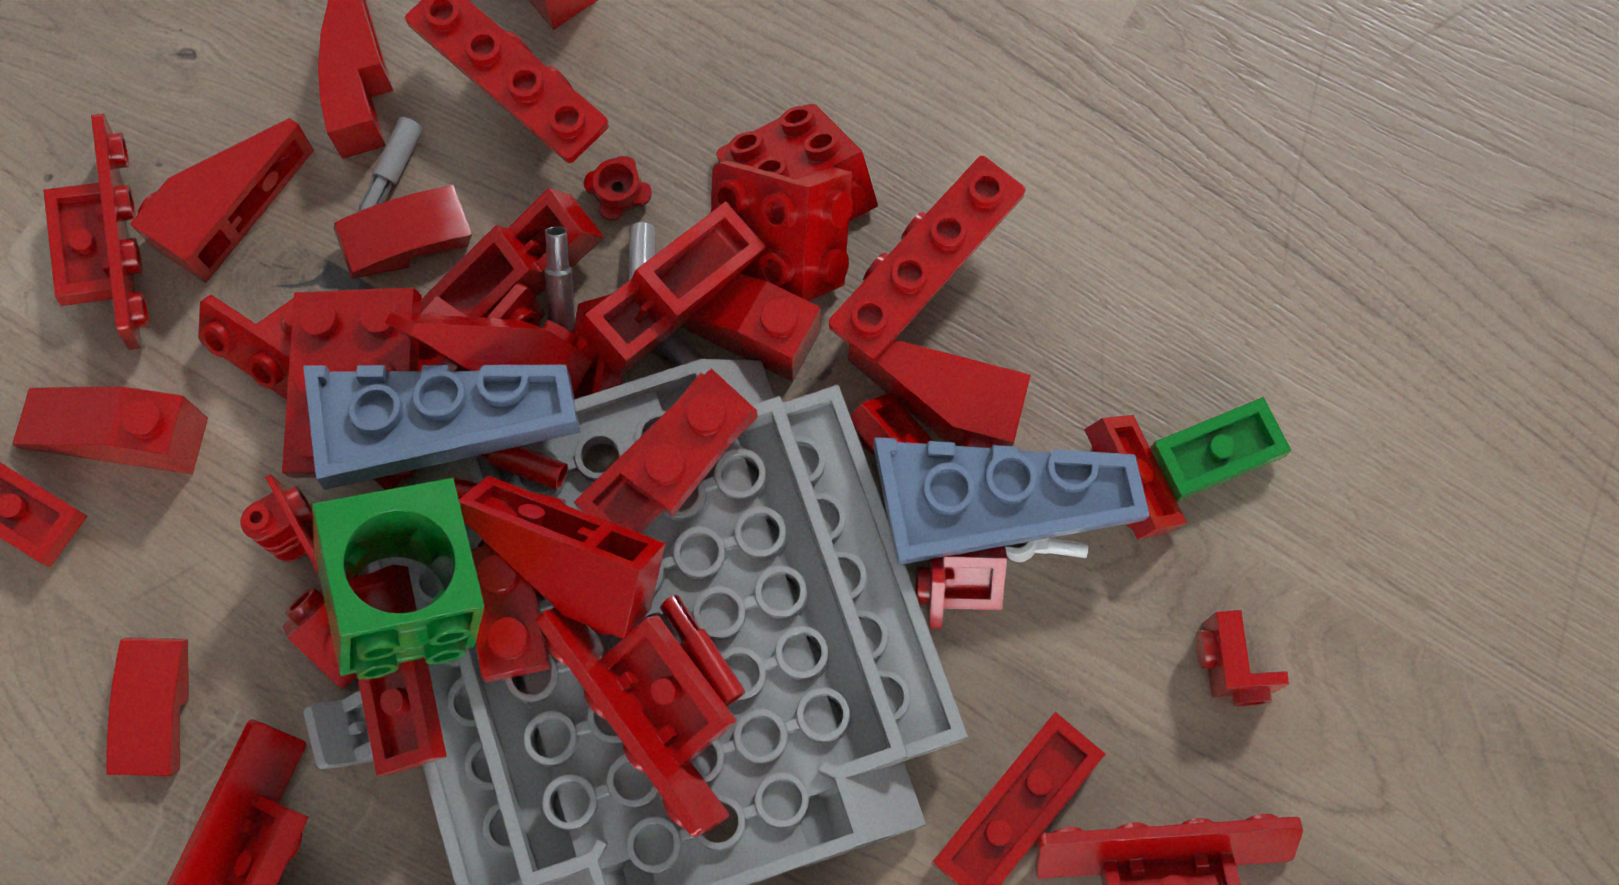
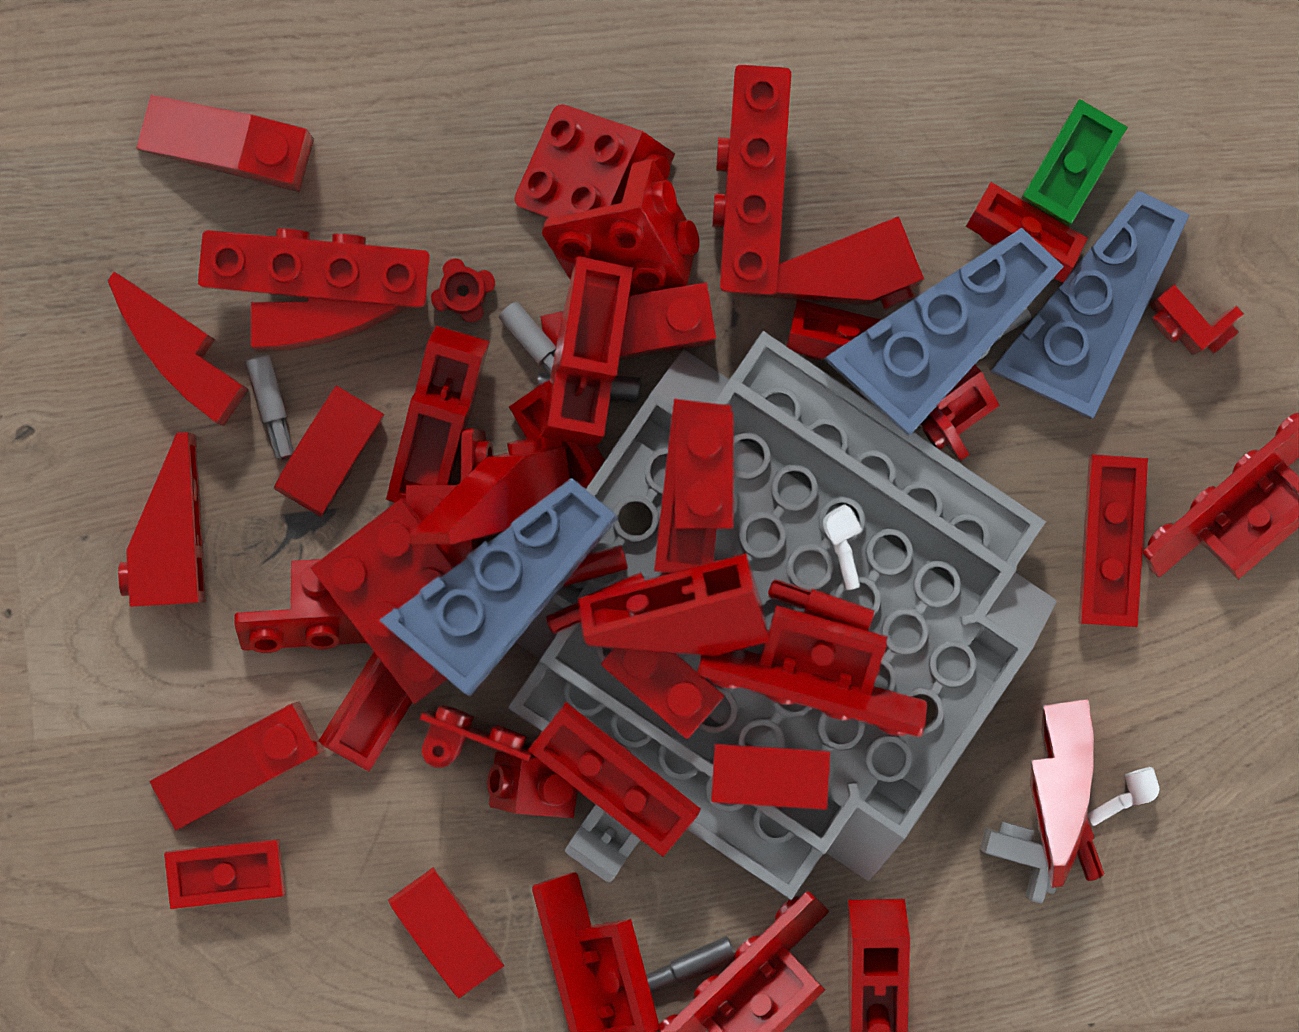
camera: 35 degrees left, 15 degrees up
(91, 241) = (98, 637): red bracket -> none
(238, 469) = (367, 716): none -> red tile
(402, 522) = (586, 668): green brick -> none
(483, 126) = (313, 322): none -> red slope
(530, 773) = (770, 776): none -> red tile
(559, 279) = (489, 406): flat silver pin -> none
(771, 591) = (839, 527): none -> white hand
(1136, 594) = (1090, 319): none -> sand blue wing

